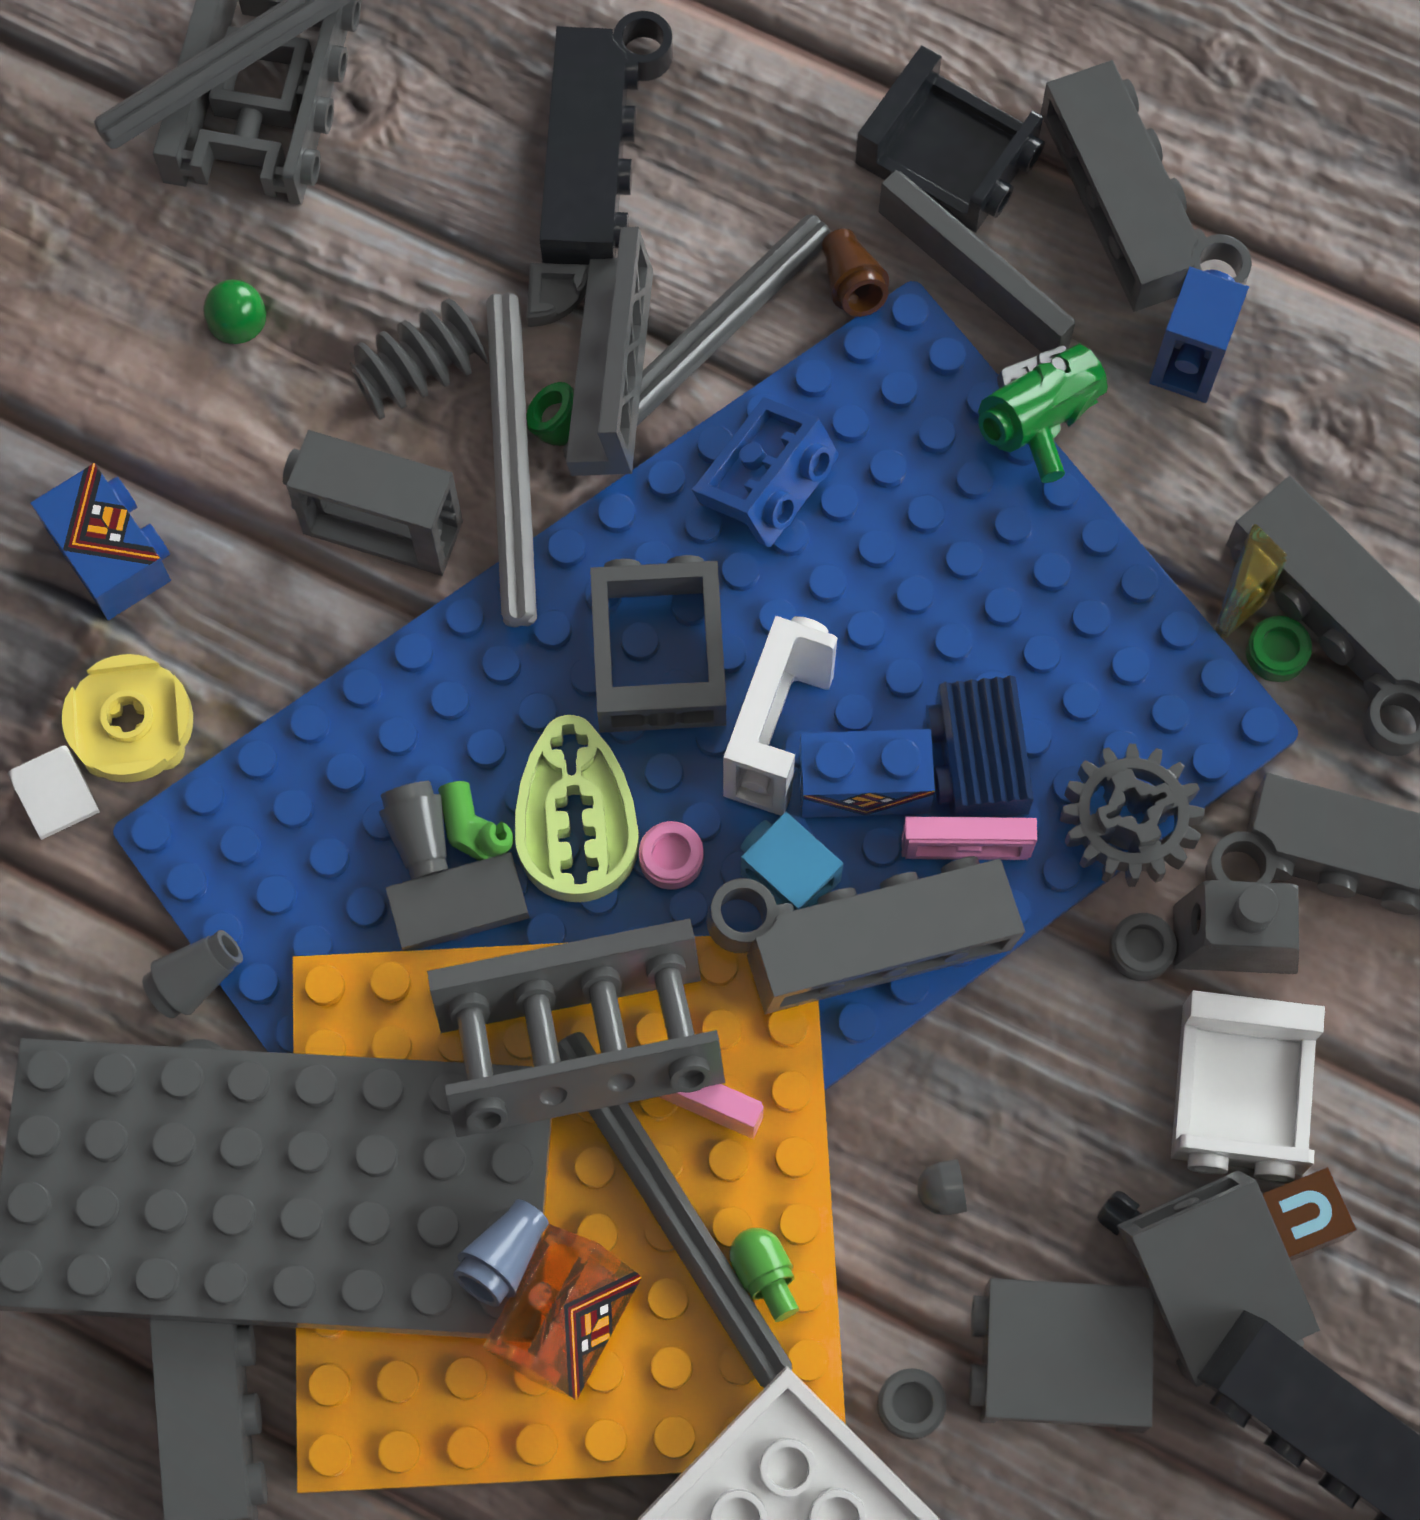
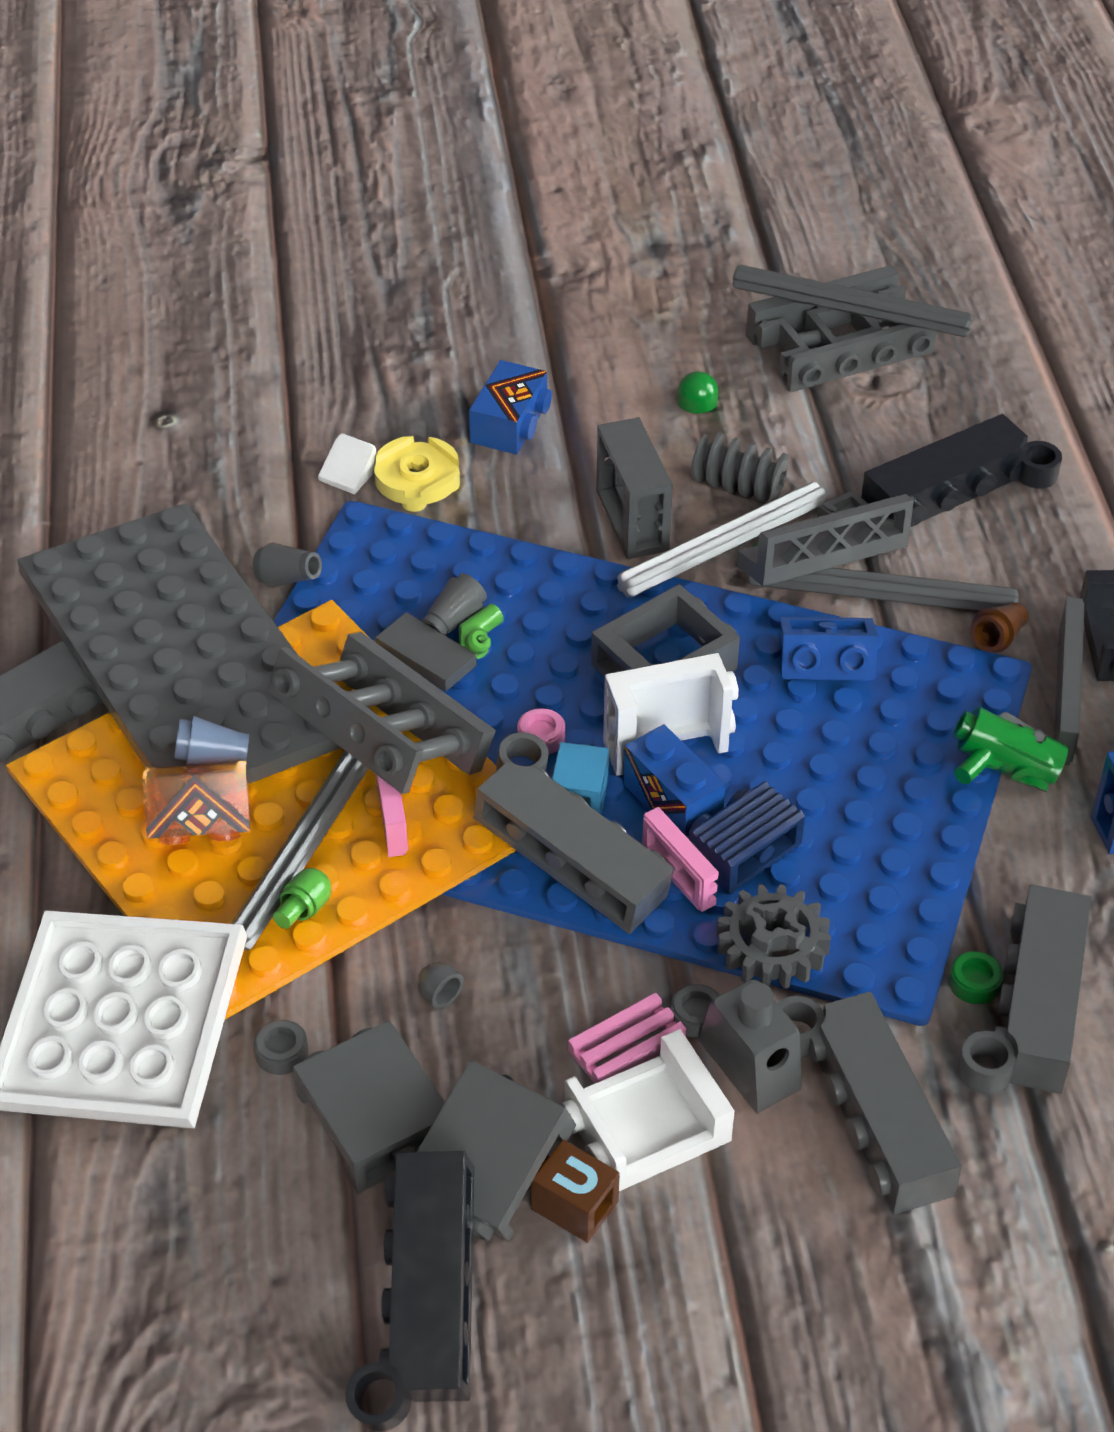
camera: 55 degrees right, 25 degrees down
(540, 825) = (528, 653): yellowish green piece -> none
(1135, 987) = (620, 1034): none -> bright pink tile
(1250, 580) = (989, 911): clear yellow slope -> none

